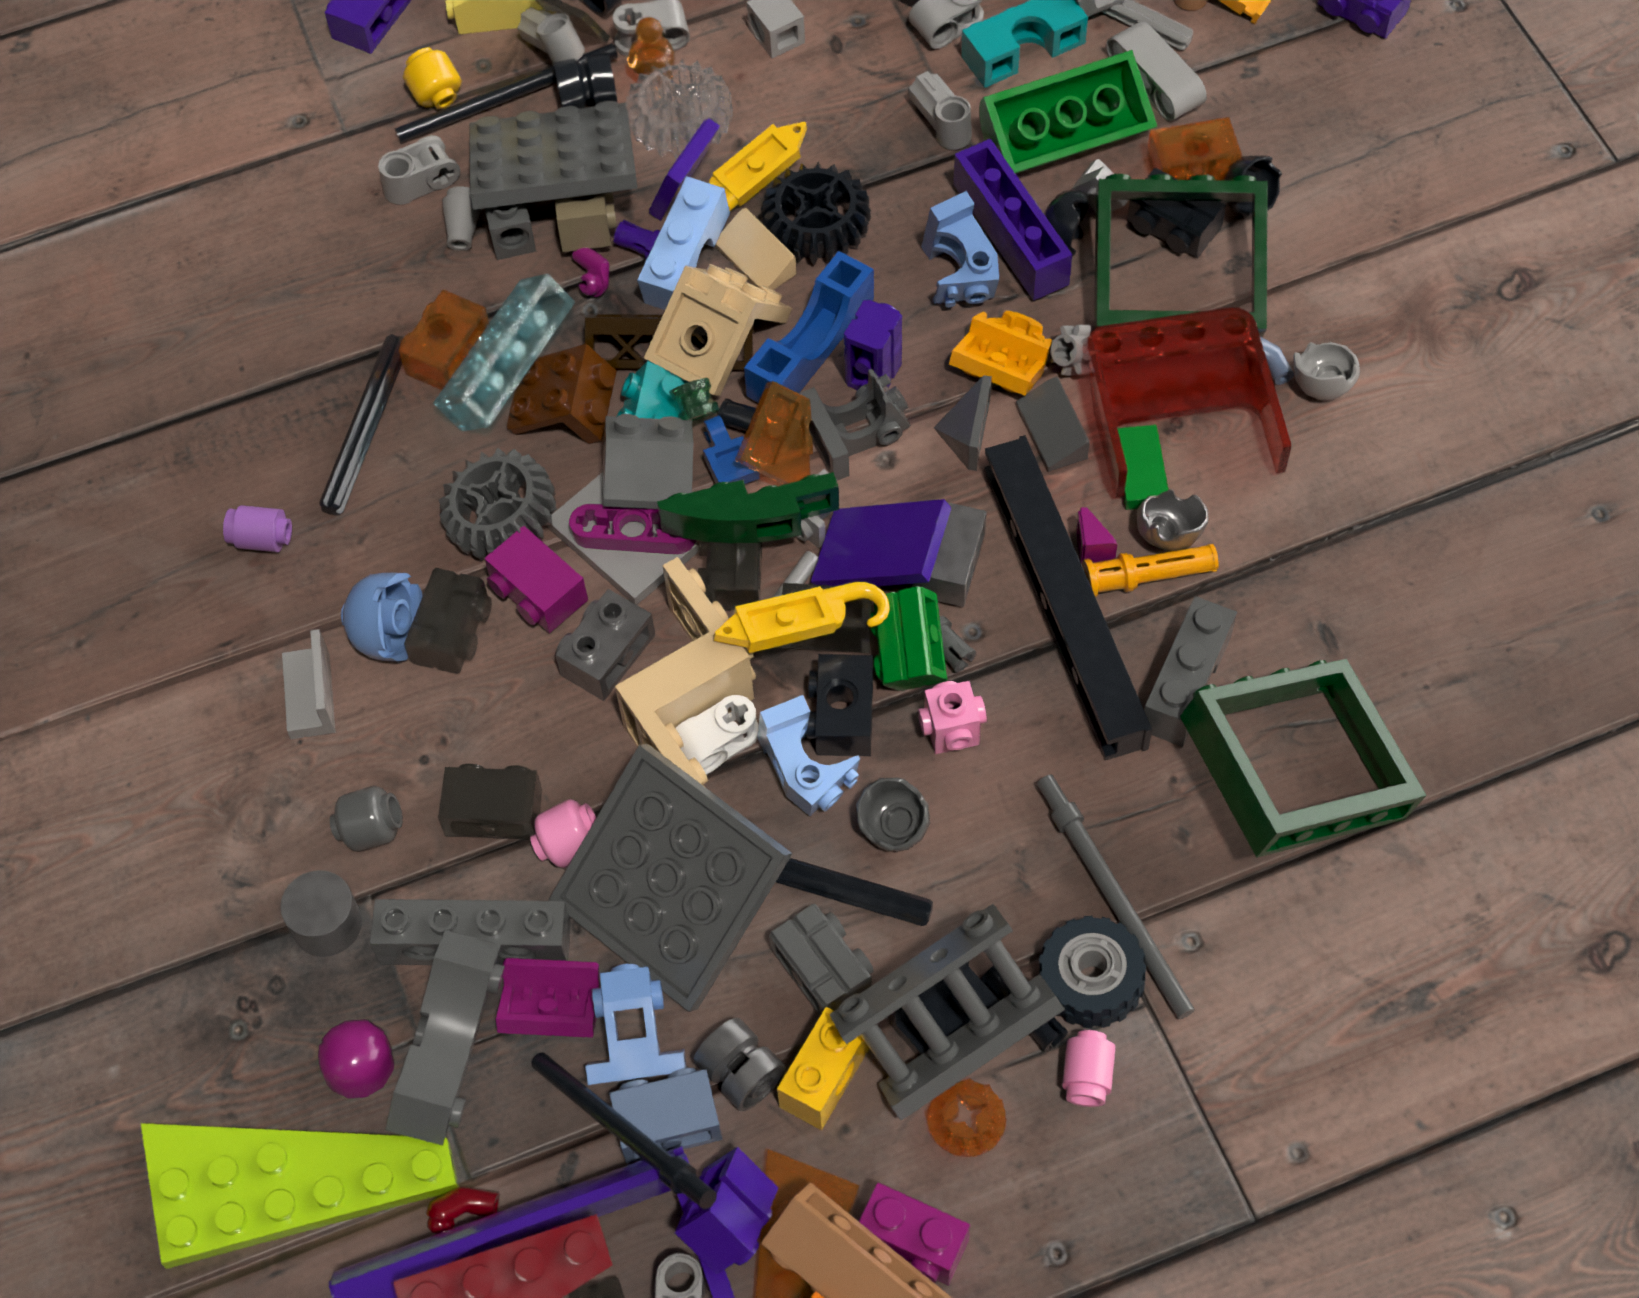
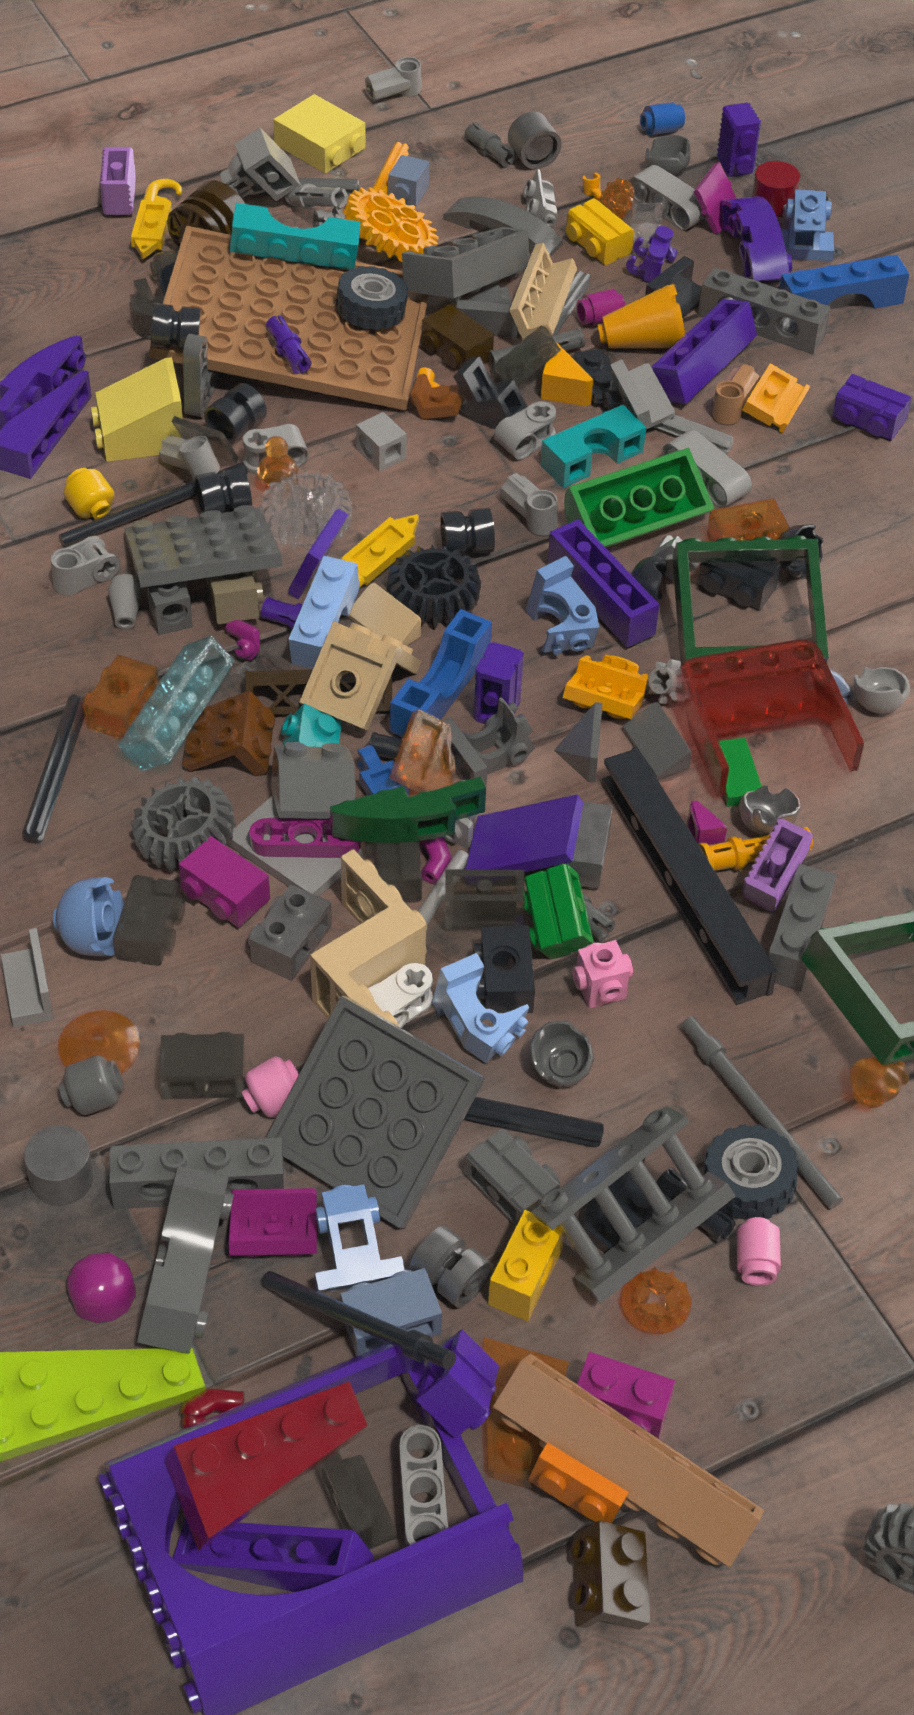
camera: 10 degrees left, 10 degrees down
(400, 772) = (118, 1043): none -> clear orange dish
(694, 400) = (349, 731): clear green wheel -> none
(785, 559) = (438, 858): none -> magenta arm
(797, 616) = (463, 891): yellow plate -> none
(862, 145) = (468, 531): none -> black wheel
(1169, 594) = (776, 865): none -> medium lavender brick
(1249, 875) = (876, 1083): none -> clear orange animal

